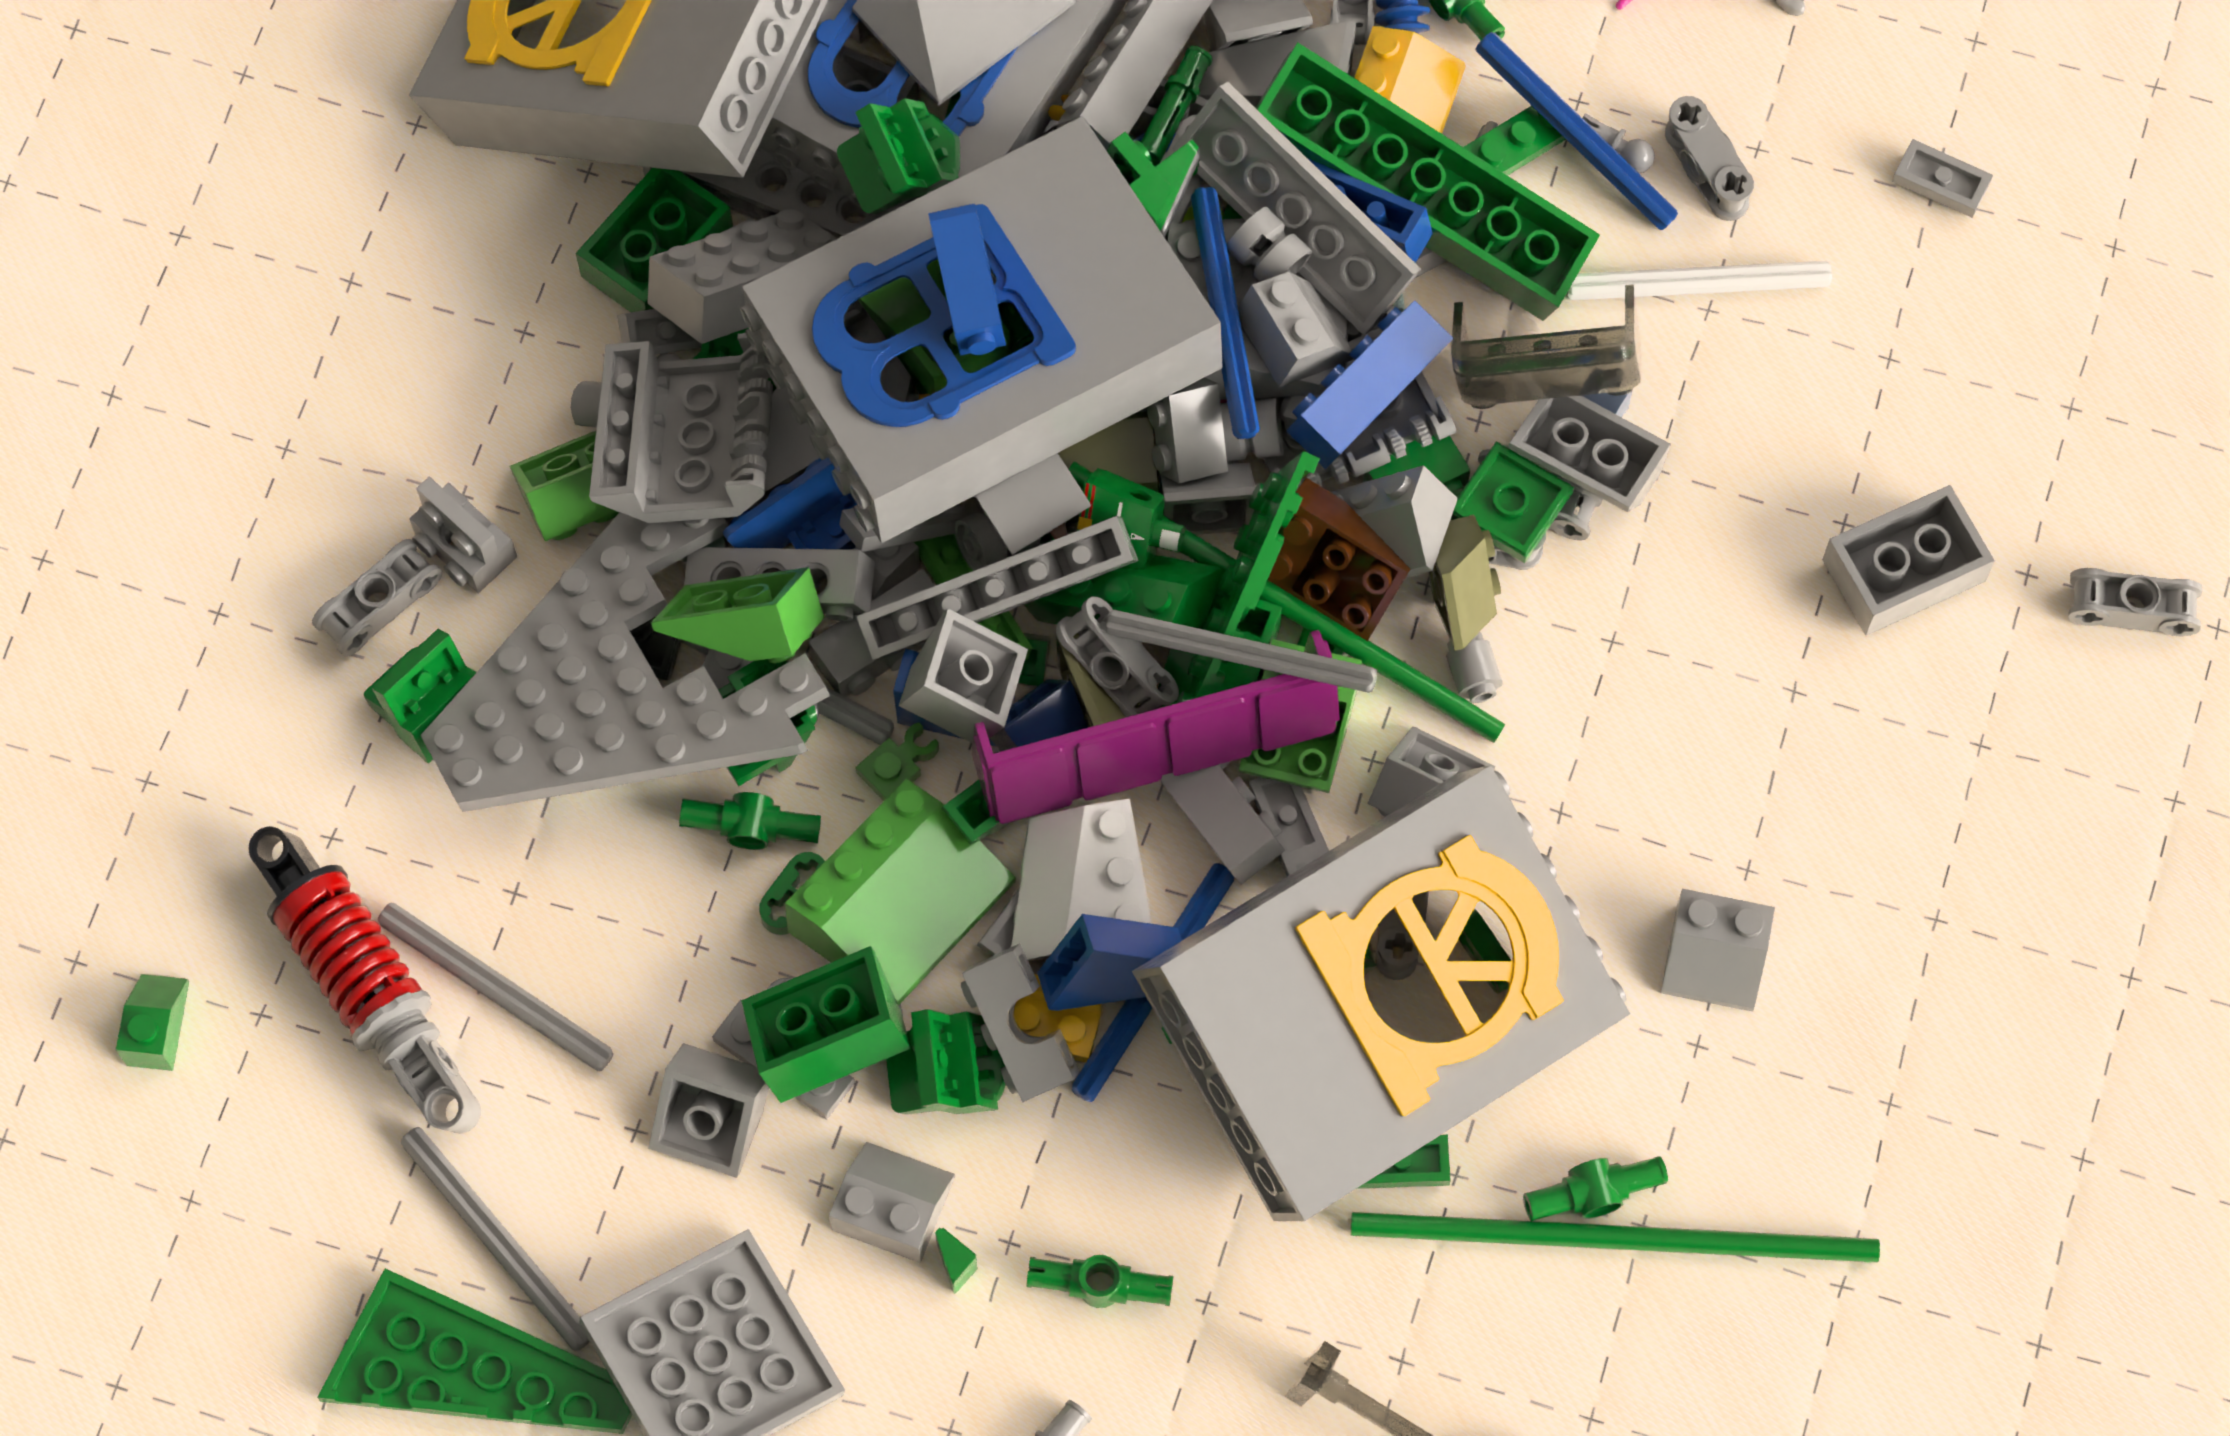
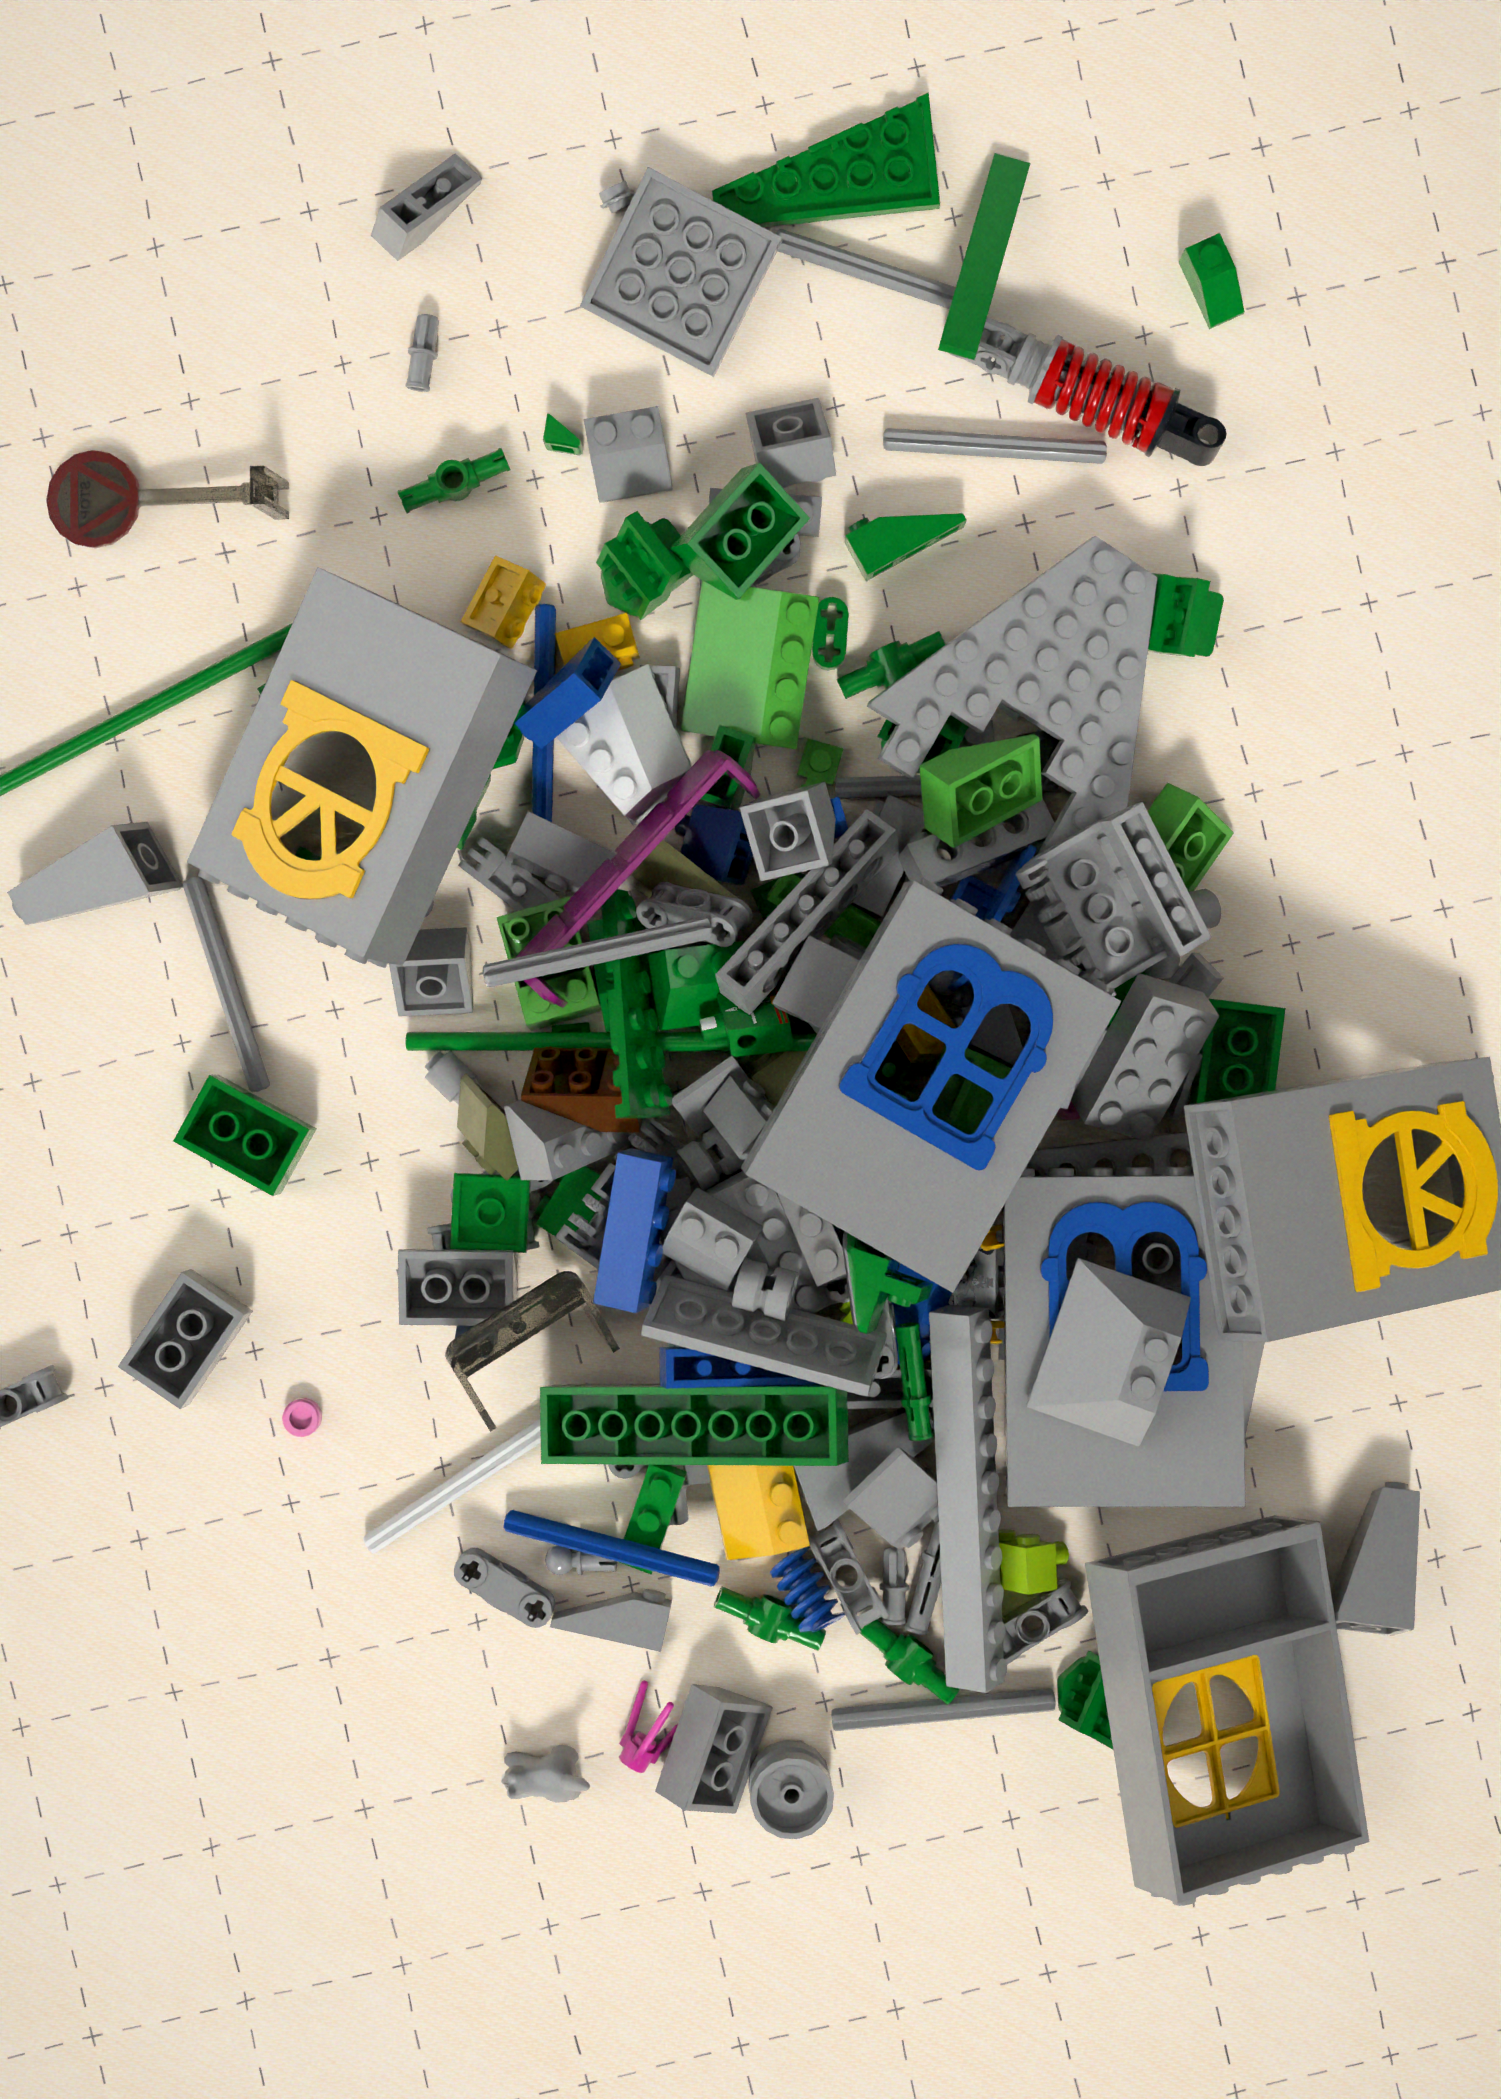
camera: 150 degrees right, 20 degrees up
(354, 620) = (1266, 646): light grey piece -> none
(376, 1174) = (984, 257): none -> green tile
(449, 517) = (1214, 742): light grey brick -> none
(670, 945) = (893, 539): none -> green slope
(898, 155) = (1075, 1193): green piece -> none
(967, 280) = (944, 1084): blue slope -> none
(1030, 1062) = (588, 601): light grey arch -> none
(1125, 1122) = (504, 602): none -> yellow bracket
(1224, 304) = (767, 1218): blue axle -> none
(1595, 1188) = (157, 743): green pin -> none
(1606, 69) = (625, 1619): none -> light grey slope
(1663, 899) = (226, 984): none -> light grey axle
(1717, 949) = (165, 965): light grey slope -> none
(1729, 724) = (244, 1135): none -> green brick
(1736, 1073) = (103, 872): none -> light grey slope
(1829, 430) = (302, 1417): none -> bright pink tile
(1942, 178) = (325, 1672): light grey plate -> none

